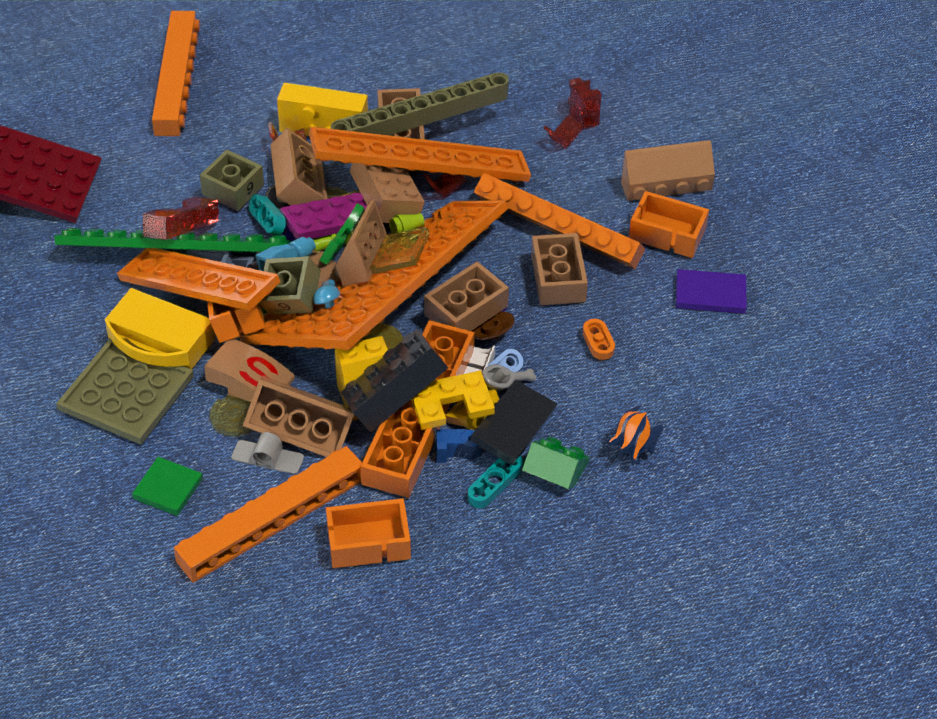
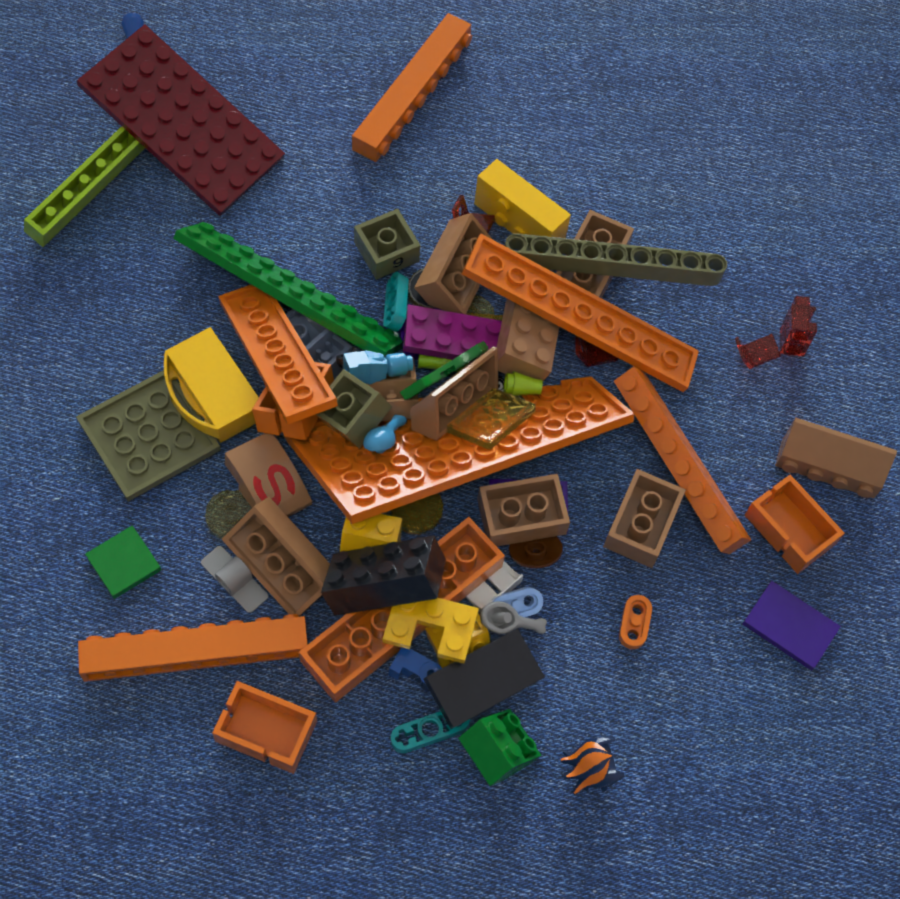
camera: 25 degrees right, 15 degrees up
(174, 222) = (283, 273): clear red arch -> none

